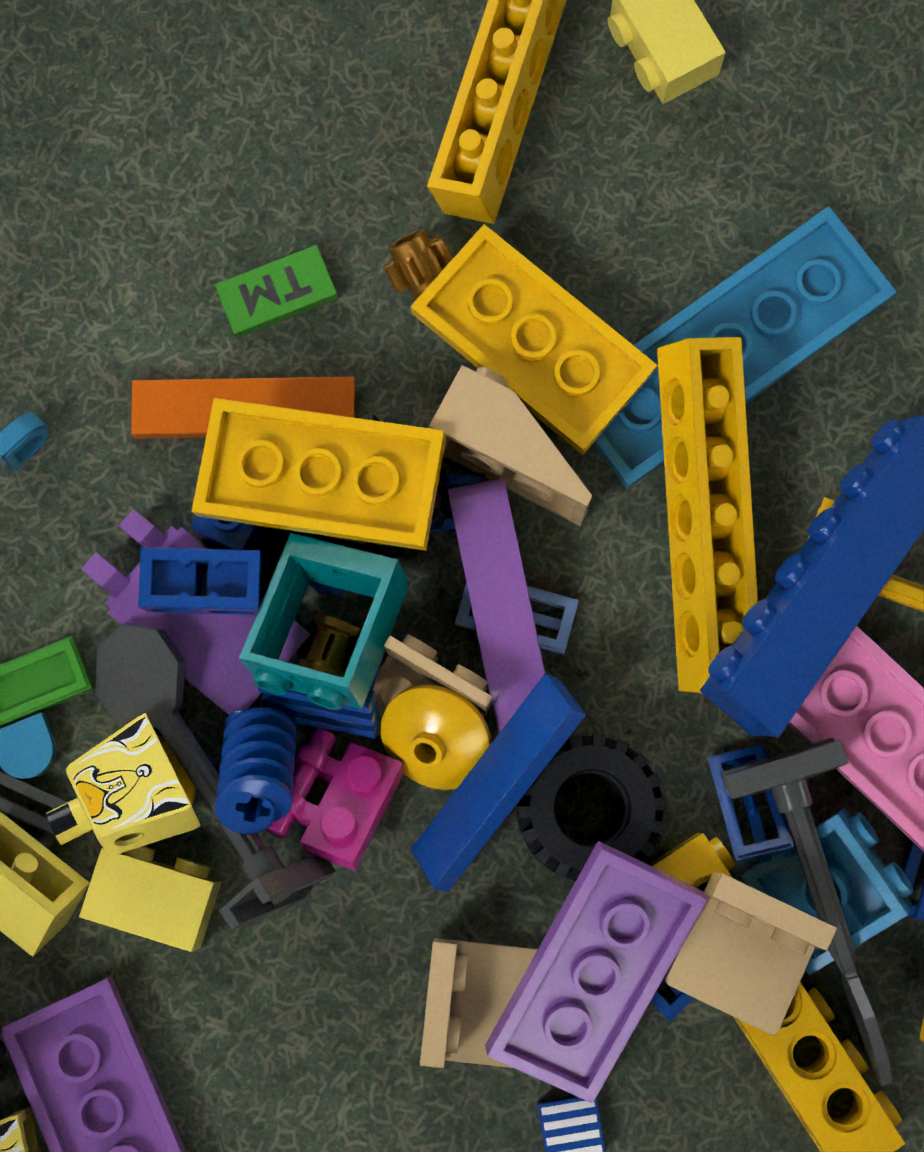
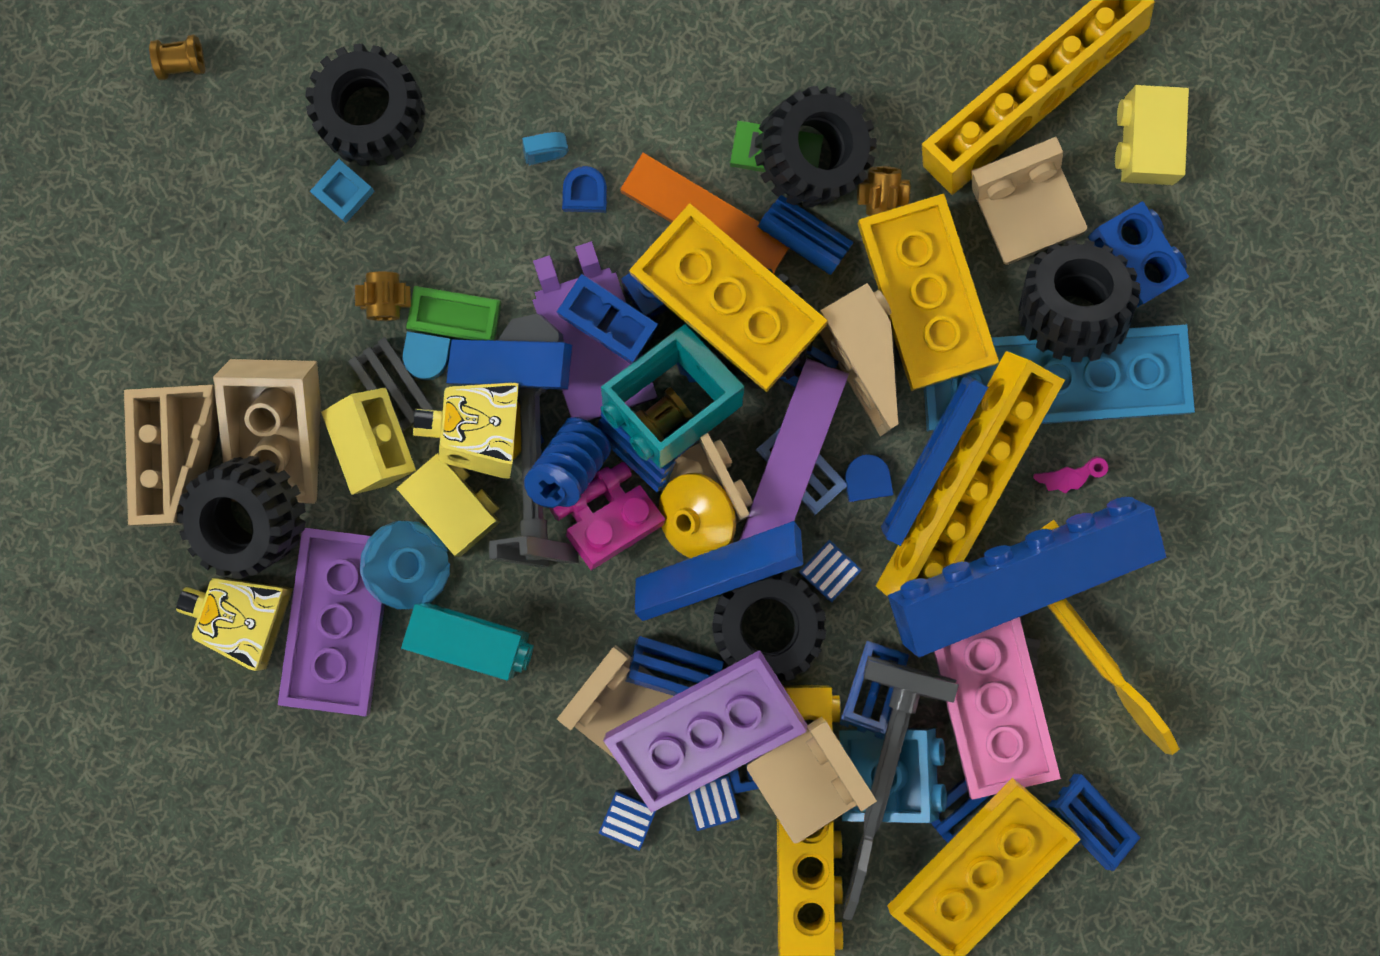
camera: 30 degrees right, 5 degrees up
(94, 461) = (584, 191): none -> blue tile
(136, 687) = (522, 362): none -> blue tile
(141, 998) = (404, 564): none -> dark azure tile
(264, 1041) = (467, 641): none -> teal window
(323, 220) = (844, 131): none -> black tyre
(363, 360) = (805, 234): none -> blue tile
(502, 907) = (672, 653): none -> blue tile
(578, 180) = (1028, 201): none -> tan bracket
(596, 580) = (867, 479): none -> blue tile
(618, 706) = (830, 571): none -> tile
(653, 513) = (933, 459): none -> blue tile
(655, 1048) = (713, 804): none -> tile
(695, 216) = (1083, 273): none -> black tyre
(724, 179) = (1151, 249): none -> blue brick
(811, 444) = (1070, 478): none -> dark pink piece

